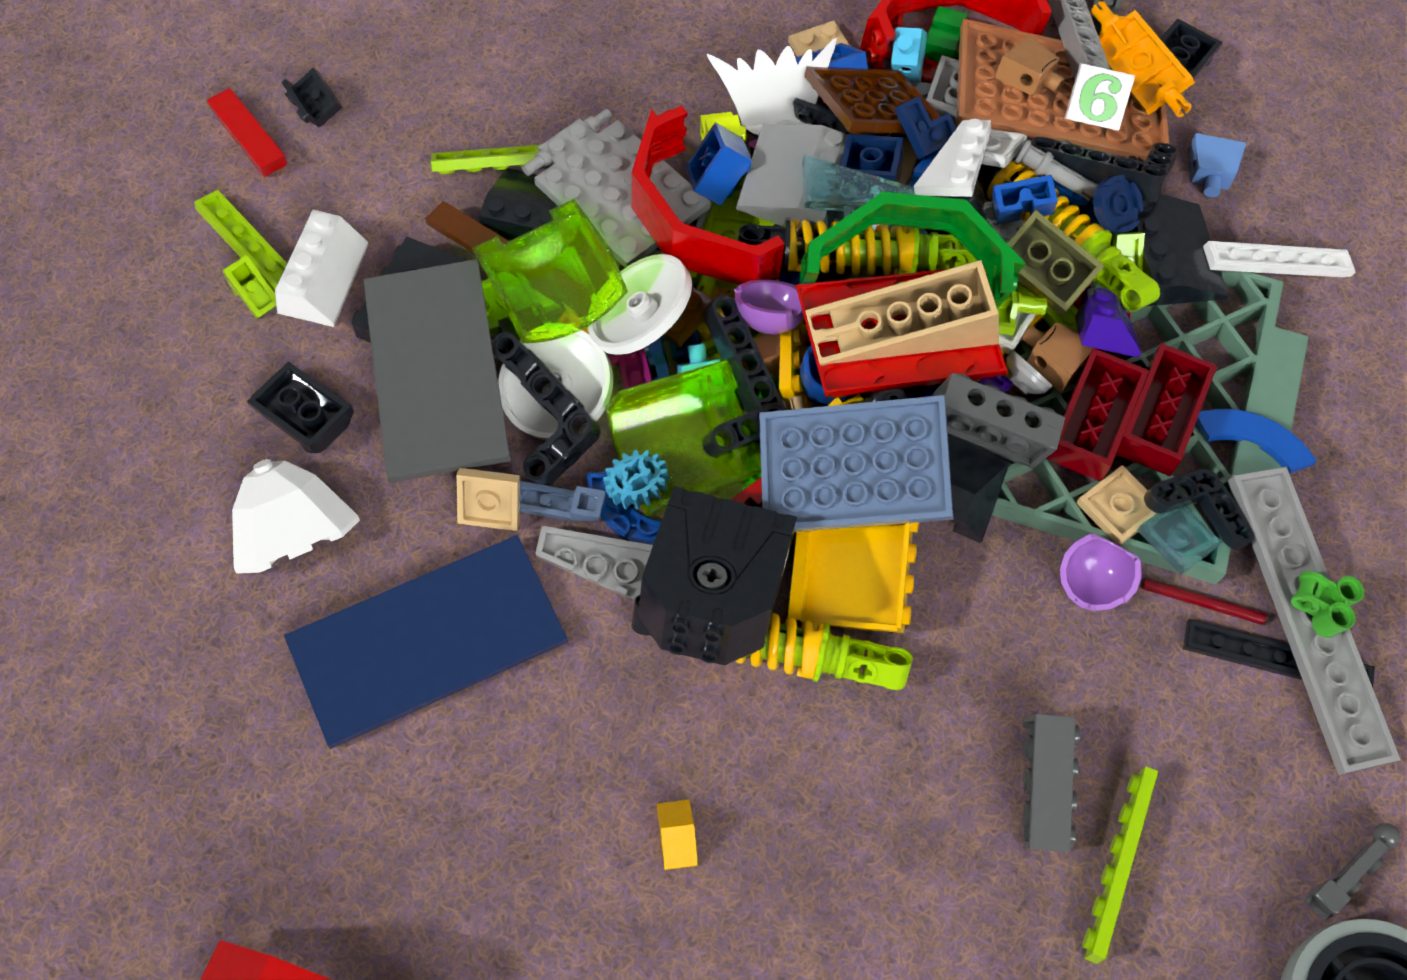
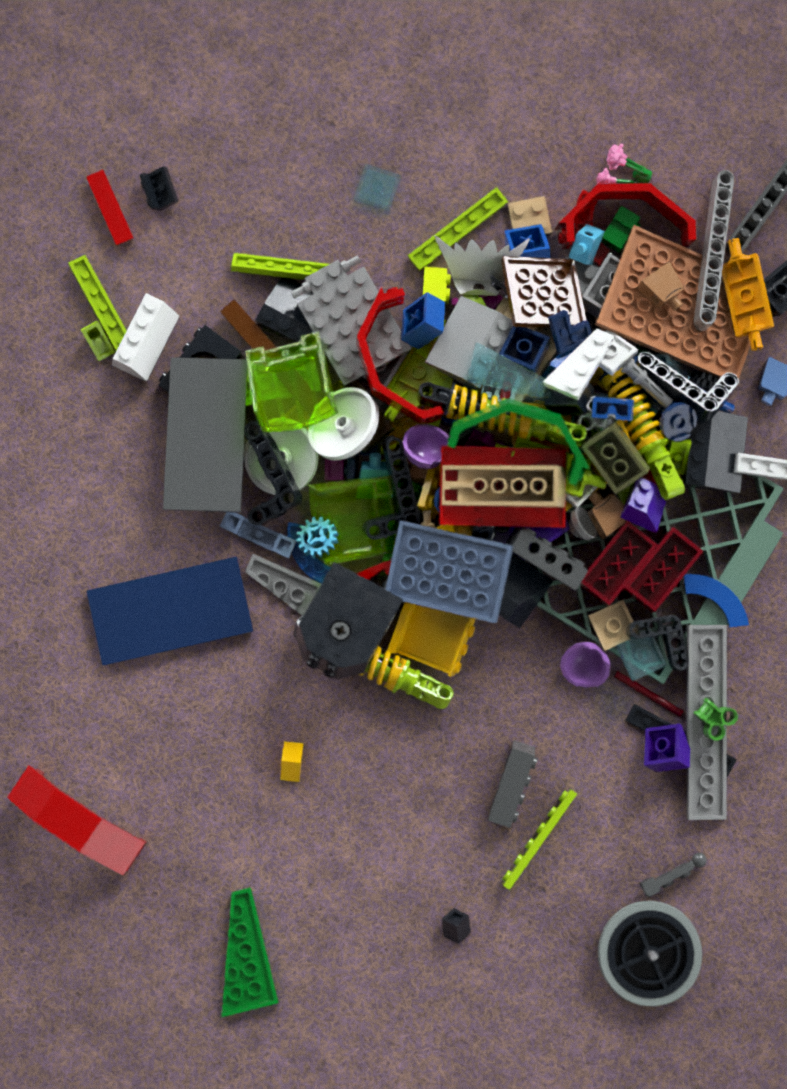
camera: 15 degrees right, 20 degrees up
(282, 514) = (97, 514): white brick -> none
(302, 408) = (116, 436): black slope -> none
(488, 499) = (223, 531): tan tile -> none
(611, 50) = (377, 187): none -> clear light blue plate
(713, 90) = (458, 228): none -> lime plate
(1099, 96) = (699, 327): white tile -> none
(1269, 667) = (666, 748): none -> dark purple slope

